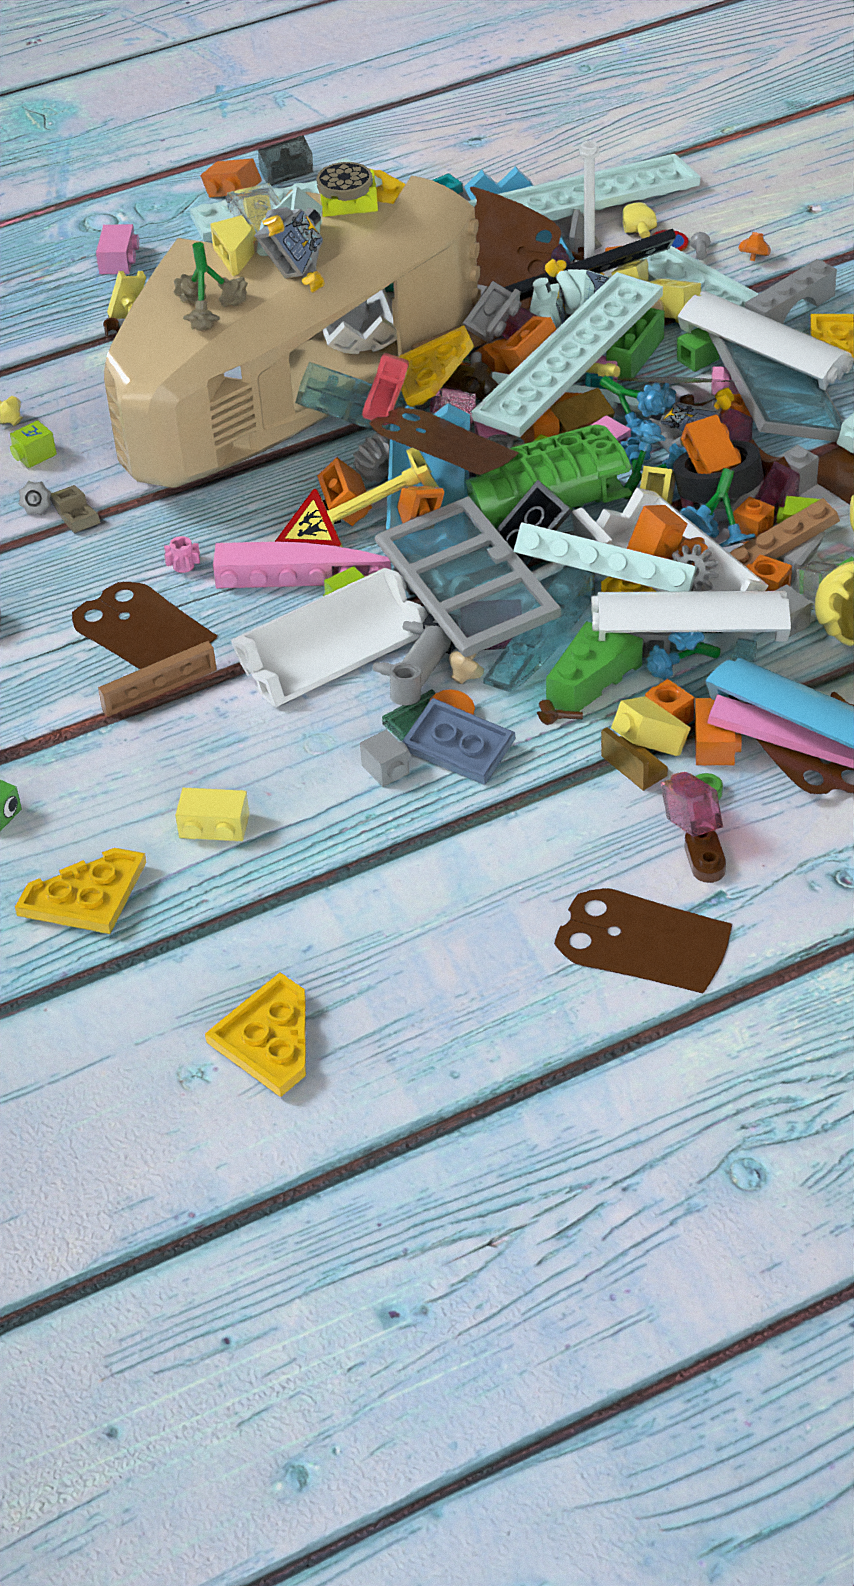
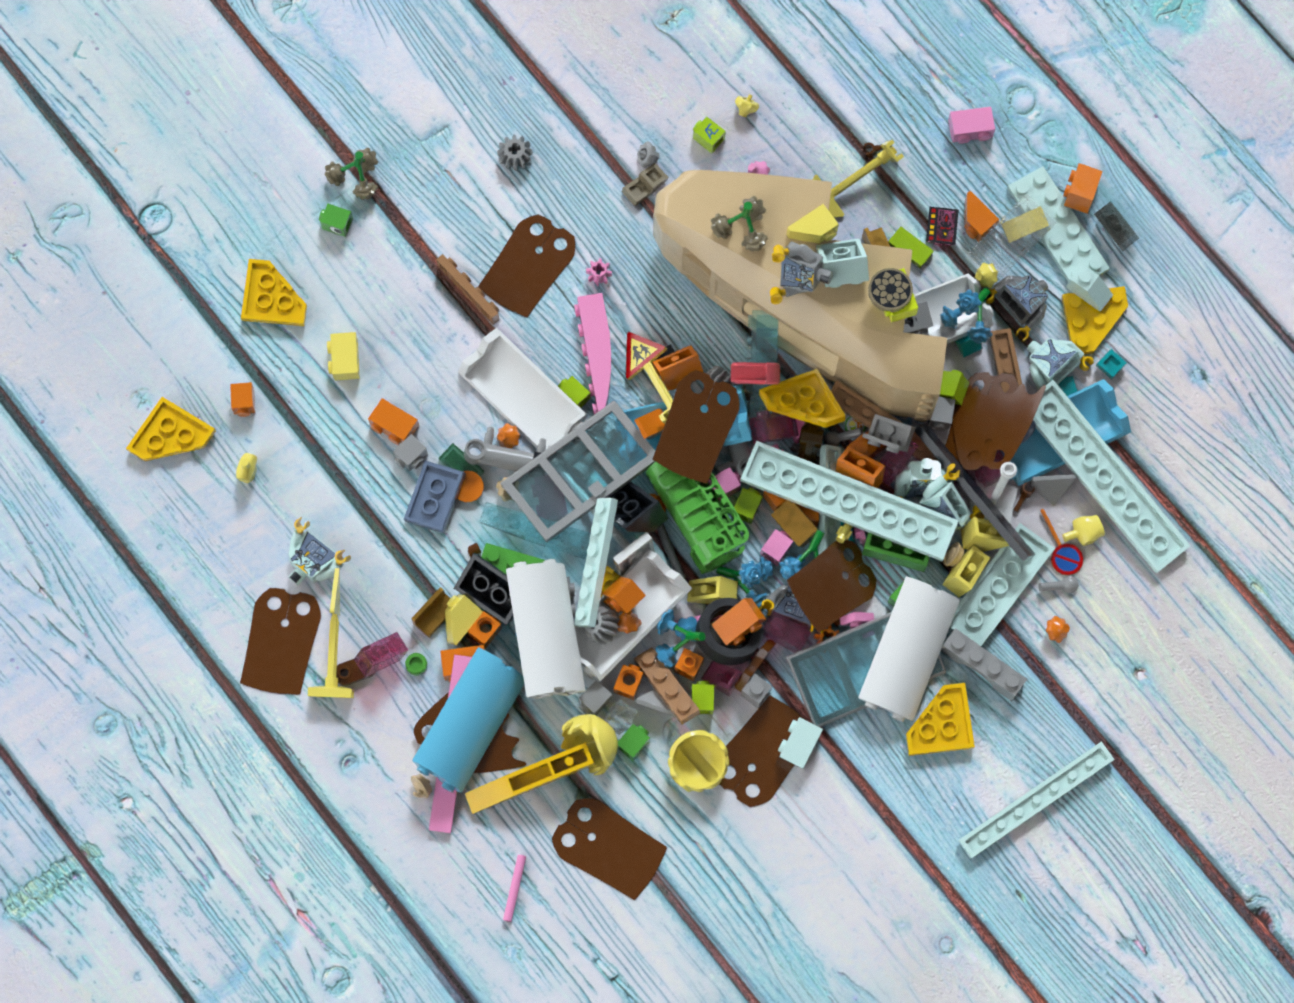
camera: 75 degrees right, 30 degrees up
(99, 411) = (759, 168): none -> bright pink piece
(241, 936) = (242, 399): none -> orange brick
(332, 771) = (392, 422): none -> orange brick
(357, 938) = (246, 468): none -> light yellow piece
(388, 653) = (508, 436): none -> orange piece
(521, 875) = (312, 556): none -> torso
(603, 840) = (331, 682): none -> light yellow piece
(611, 673) = (487, 588): none -> black slope

